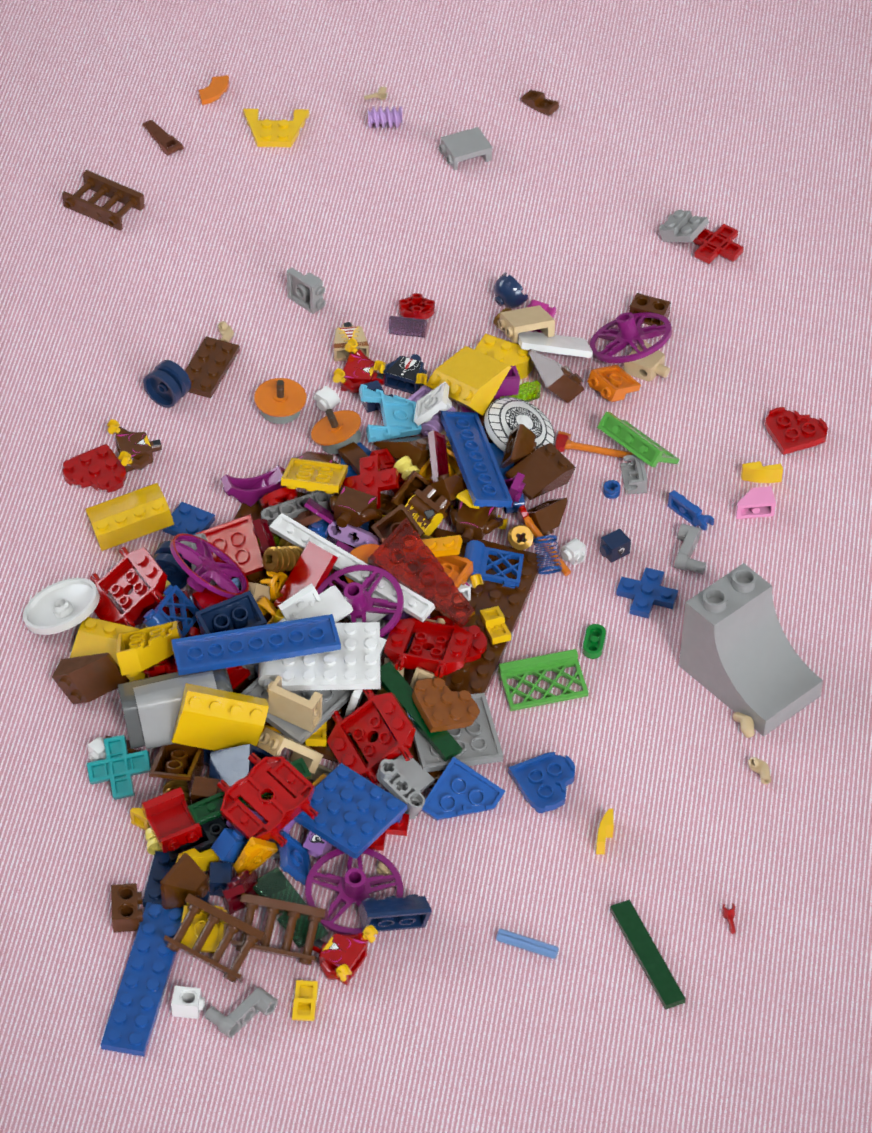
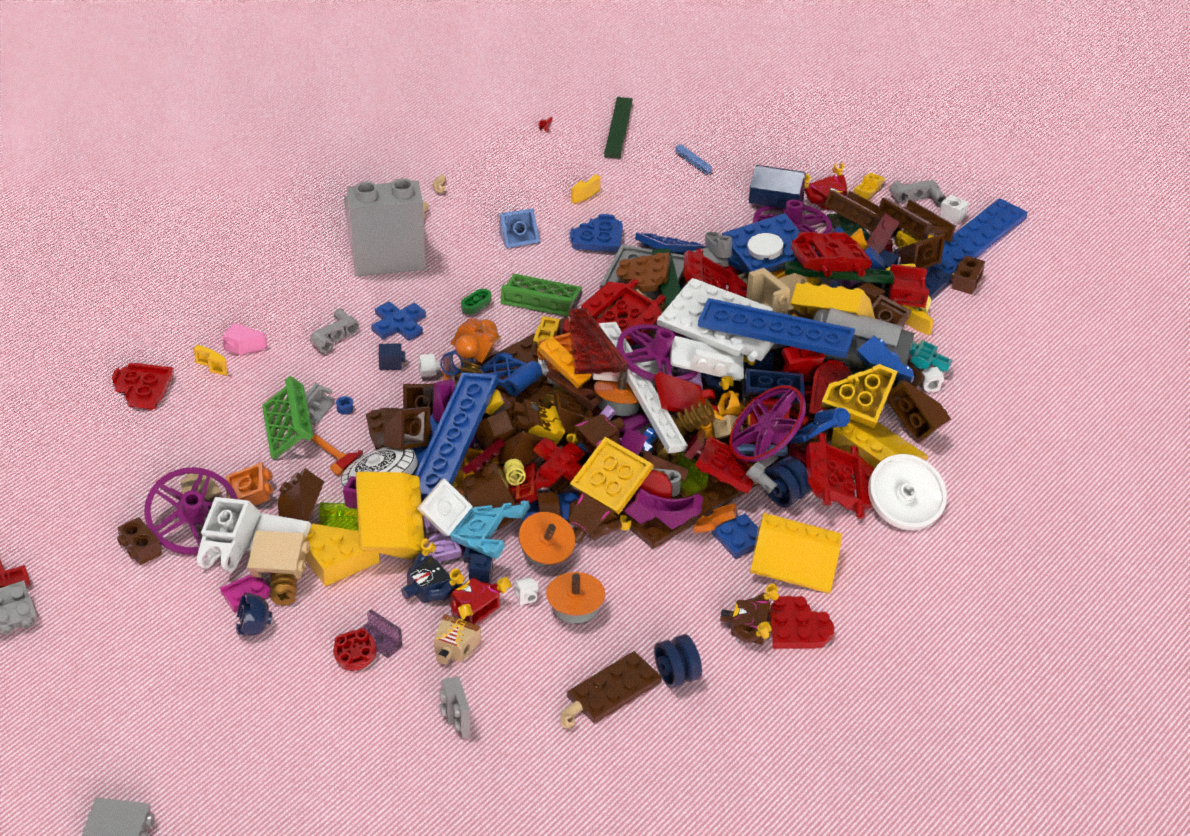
camera: 150 degrees left, 5 degrees down
(135, 670) = (876, 352): none -> blue slope
(220, 514) = (712, 521): none -> orange tile
(344, 787) = (765, 246): none -> white tile
(556, 576) = (476, 339): none -> orange brick
(584, 329) = (227, 532): none -> white brick
(626, 743) = (518, 228): none -> medium blue slope
(688, 510) = (302, 355): blue plate -> none

